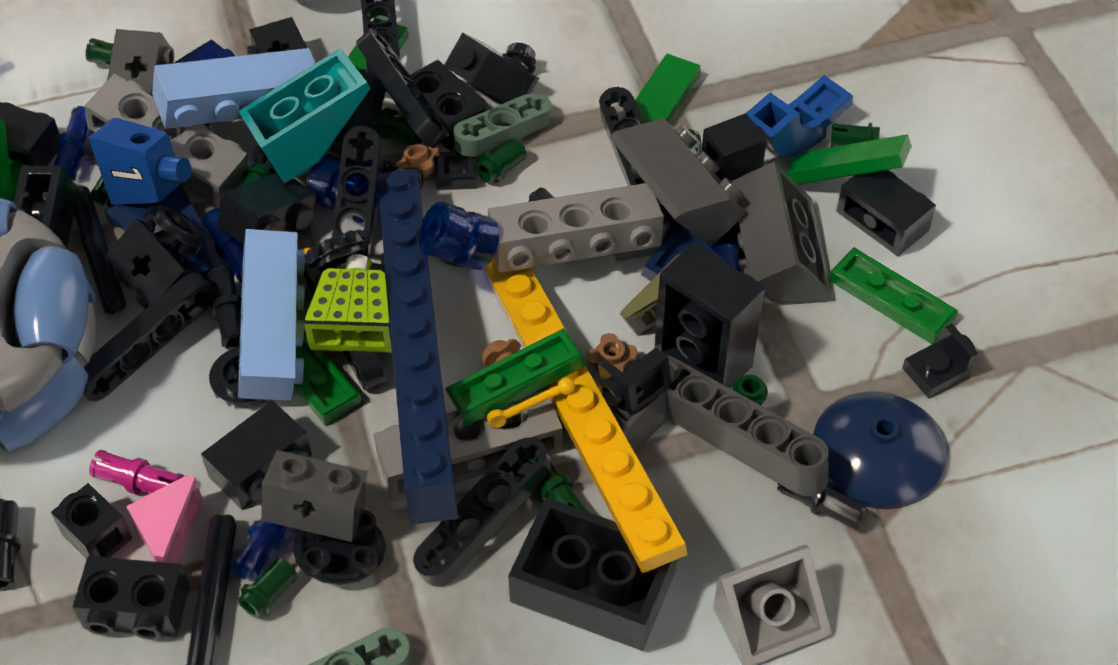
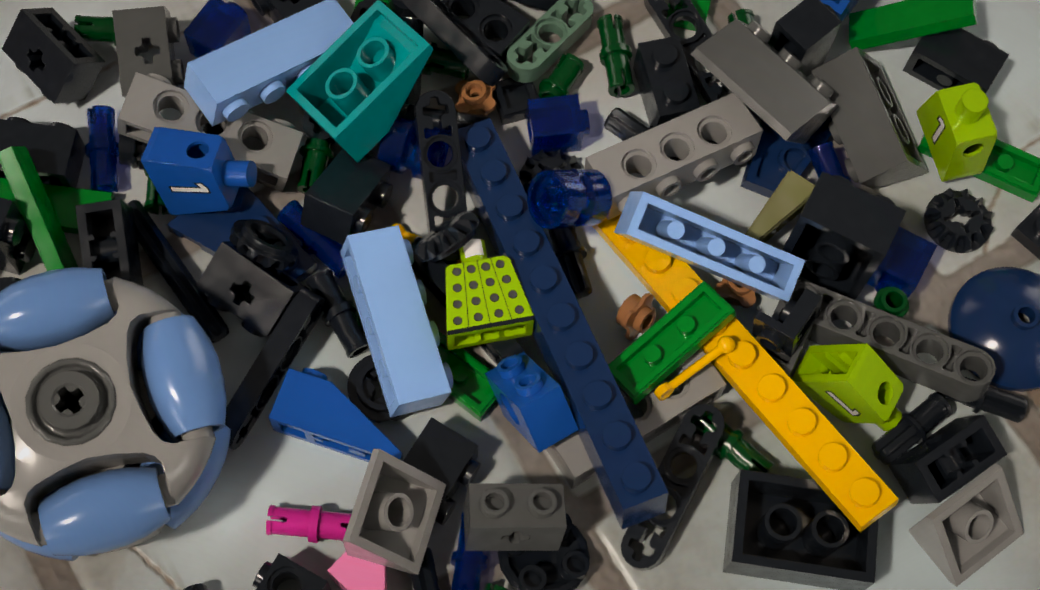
camera: 20 degrees left, 15 degrees up
(59, 63) = (52, 55): none -> black brick
(174, 383) = (322, 415): none -> blue slope
(196, 462) = (393, 514): none -> light grey slope
(368, 401) = (531, 401): none -> blue brick
(457, 301) = (571, 256): none -> black axle
(482, 188) = (556, 124): none -> clear blue brick
(559, 149) = (615, 55): none -> dark green pin
(576, 298) = (709, 246): none -> light blue brick
(594, 163) = (664, 80): none -> black brick
(688, 455) = (851, 384): none -> lime torso
(742, 513) = (912, 428): none -> black axle
(763, 536) = (947, 460): none -> black brick
(779, 363) = (903, 262): none -> clear blue brick
(837, 354) = (950, 234): none -> black gear
(859, 240) = (956, 123): none -> lime torso

